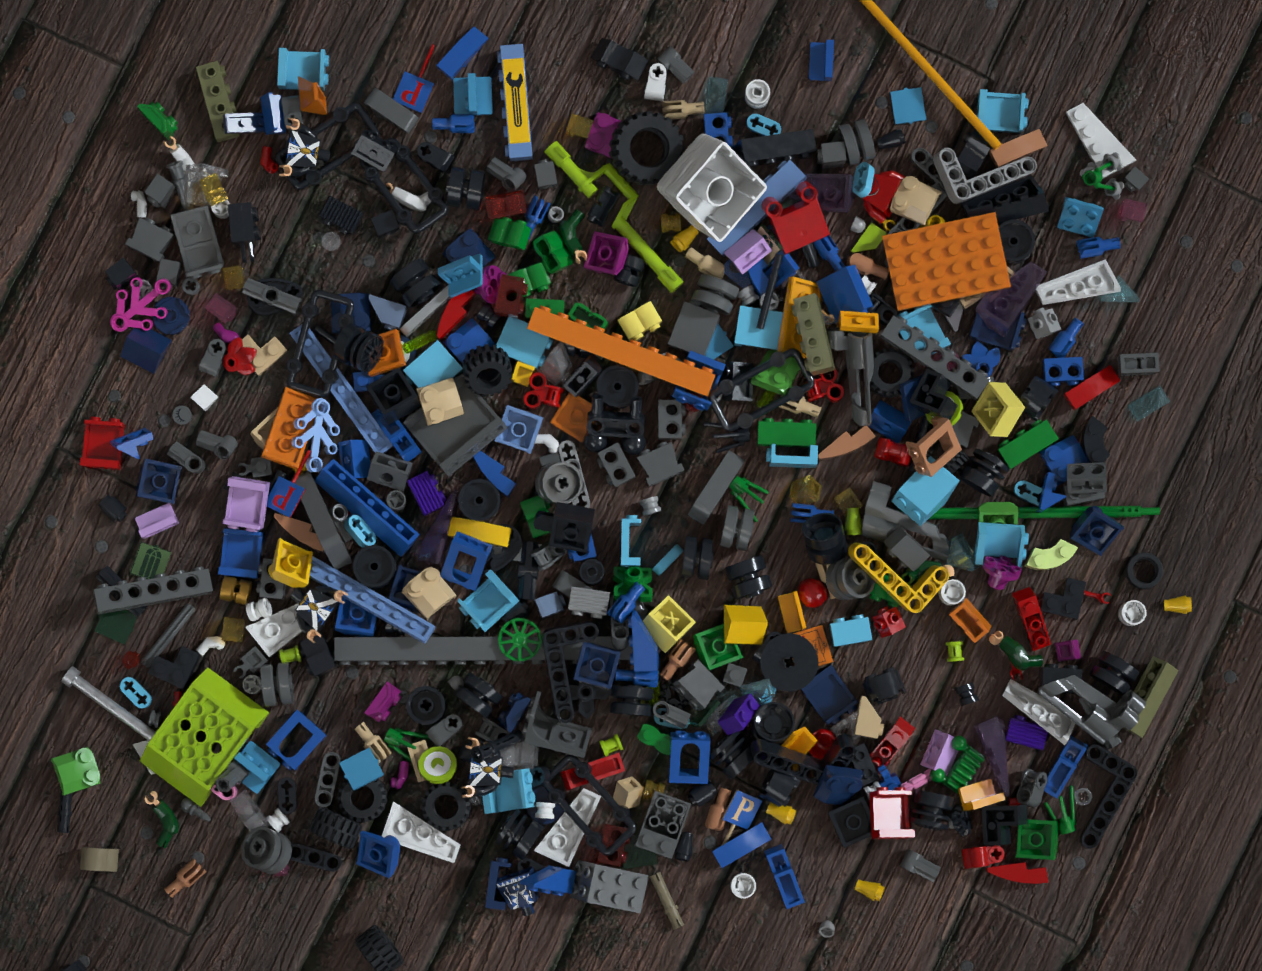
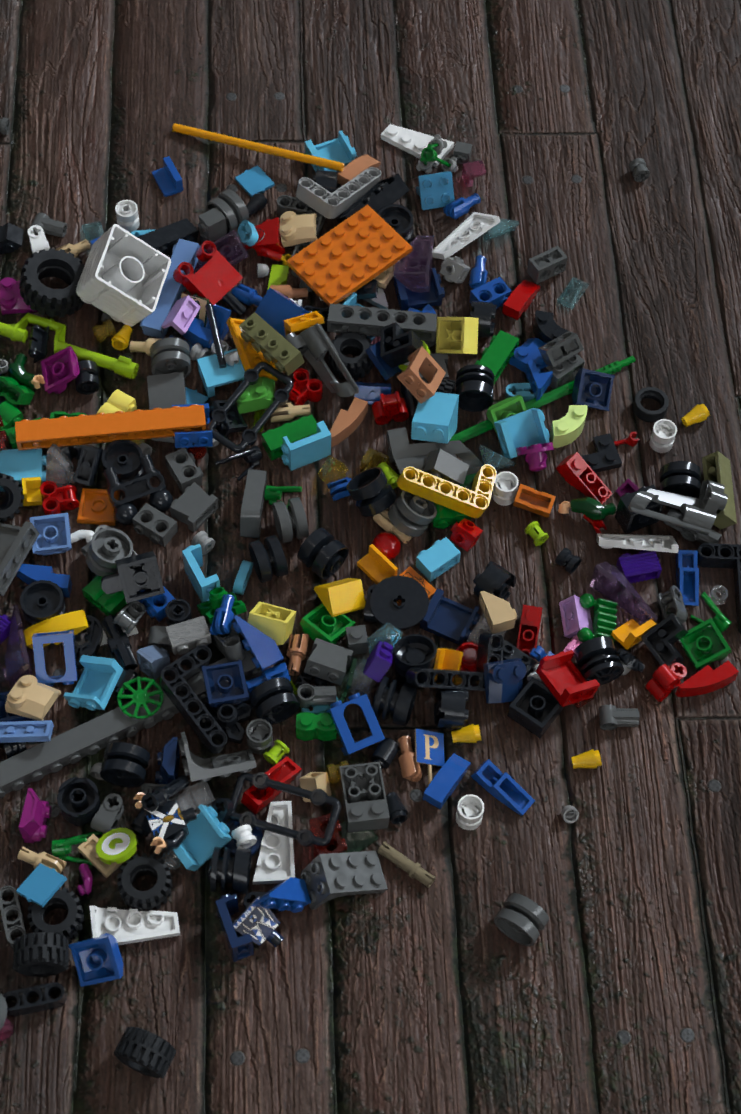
camera: 30 degrees left, 25 degrees down
(604, 724) = (259, 736): none -> dark grey wheel
(771, 324) = (231, 358): none -> light grey hinge

